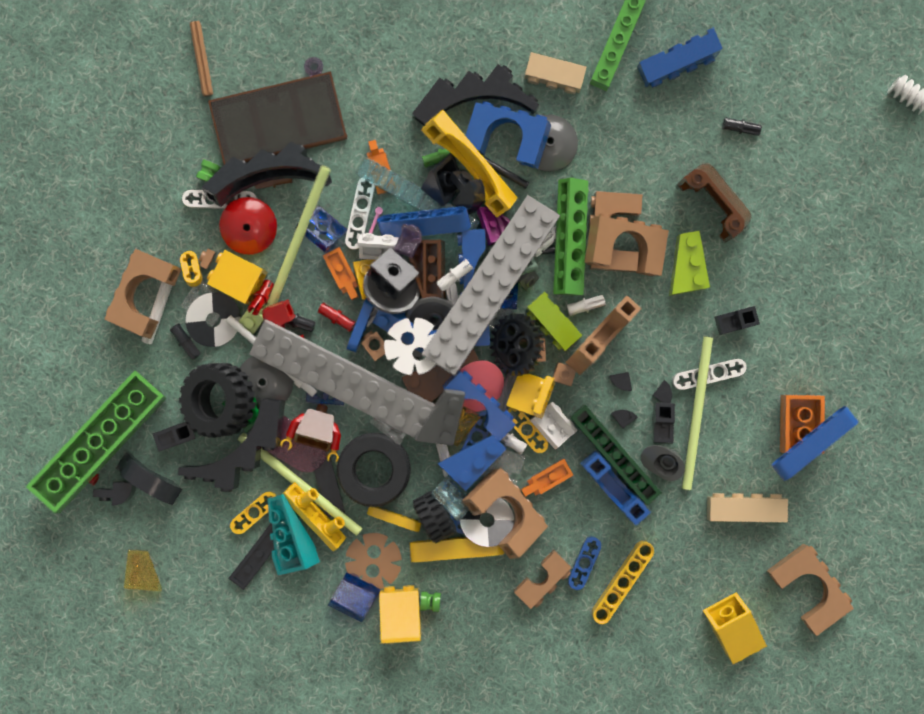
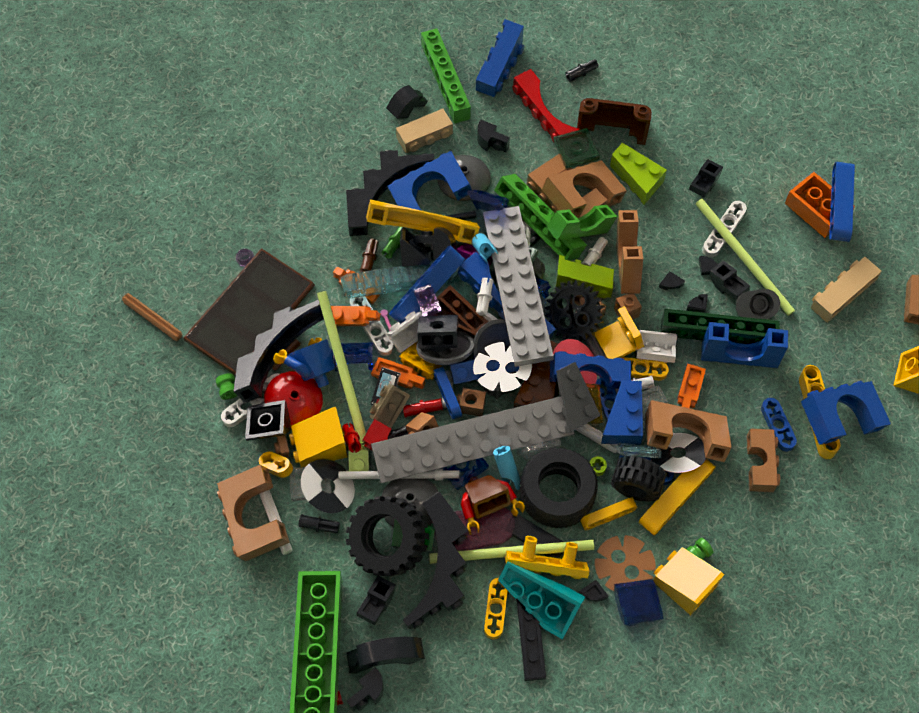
camera: 40 degrees left, 25 degrees down
(209, 231) = (267, 420): none -> black slope
(281, 210) = (310, 361): none -> blue torso
(310, 296) = (389, 405): none -> dark tan bracket
(319, 334) = (421, 423): none -> medium nougat brick
(321, 278) = (386, 376): none -> tile
(332, 561) = (594, 592): none -> black tile
(349, 194) = (354, 315): none -> orange hinge
(350, 421) = (506, 465): none -> medium azure piece
(410, 150) = (369, 255): none -> reddish brown axle
(422, 481) = (601, 461): none -> lime bush
(496, 229) = (483, 246): none -> medium azure piece
(541, 188) = (487, 201): none -> clear blue slope
(564, 30) = (404, 101): none -> black brick
(579, 273) = (566, 225): none -> bright green arch
(601, 123) = (489, 137): none -> black brick
(619, 586) = (860, 397): none -> blue arch
(657, 202) = (576, 148): none -> clear green tile
(665, 185) = (528, 88): none -> red arch

